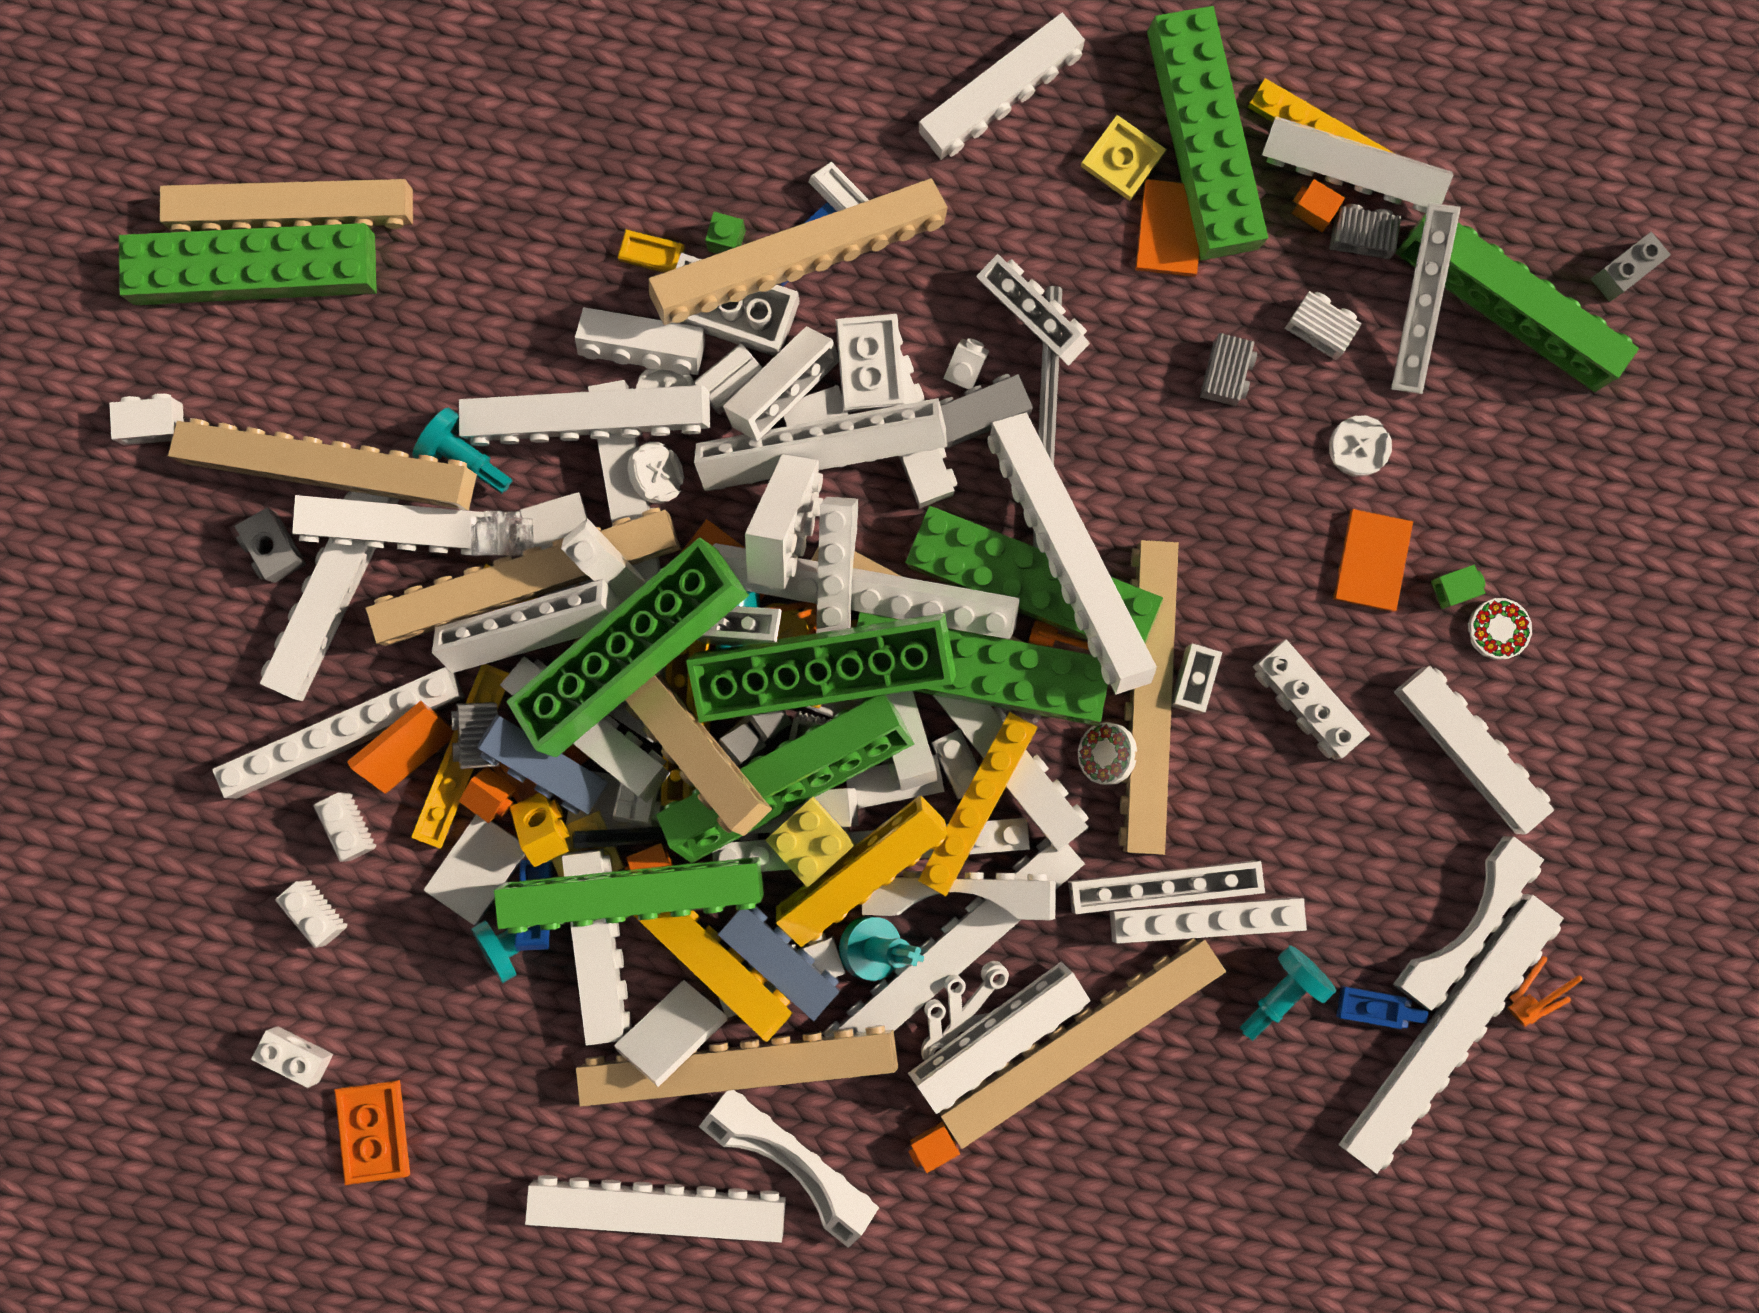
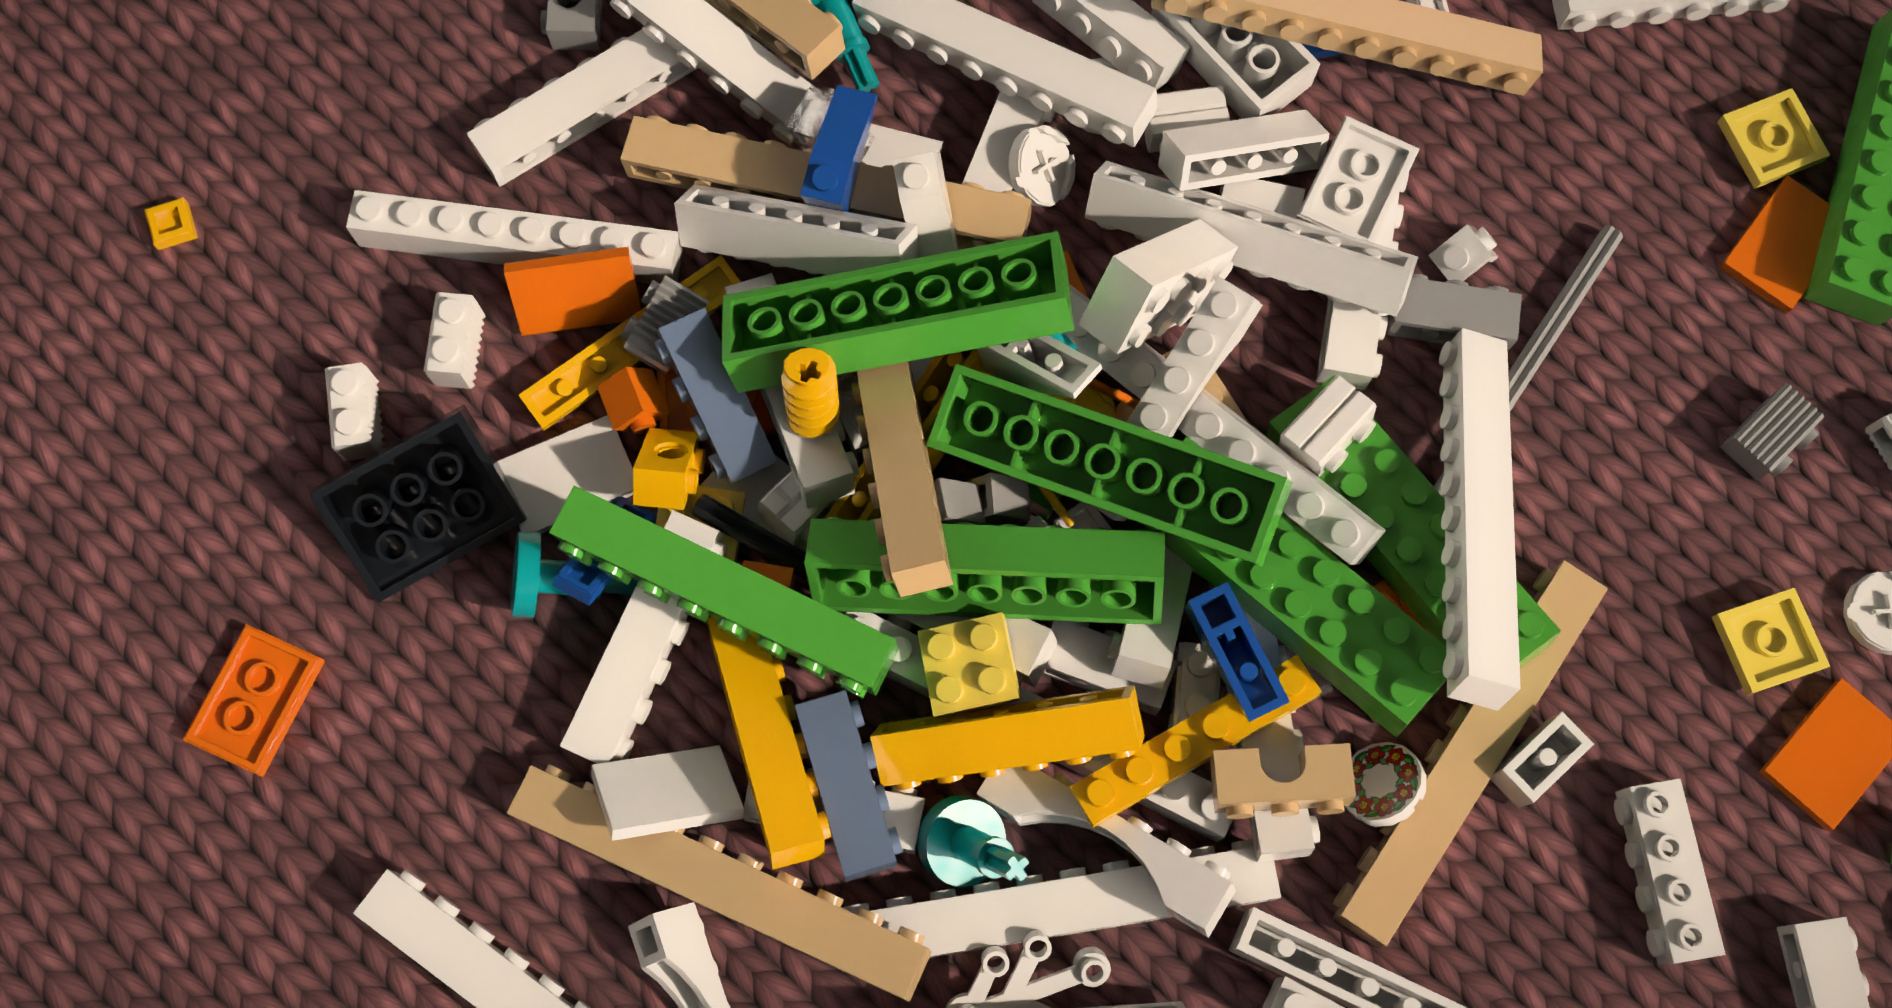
camera: 30 degrees right, 10 degrees down
(101, 860) = (171, 223): none -> yellow tile
(292, 1056) = (224, 556): white brick -> none
(393, 946) = (419, 503): none -> black slope
(519, 554) = (839, 150): none -> blue slope
(604, 734) = (810, 392): none -> yellow piece
(945, 549) = (1329, 427): none -> white brick
(972, 736) = (1236, 651): none -> blue slope
(1029, 305) = (1581, 234): white brick -> none
(1070, 786) = (1243, 787): none -> tan arch
(1297, 511) = (1770, 641): none -> light yellow plate

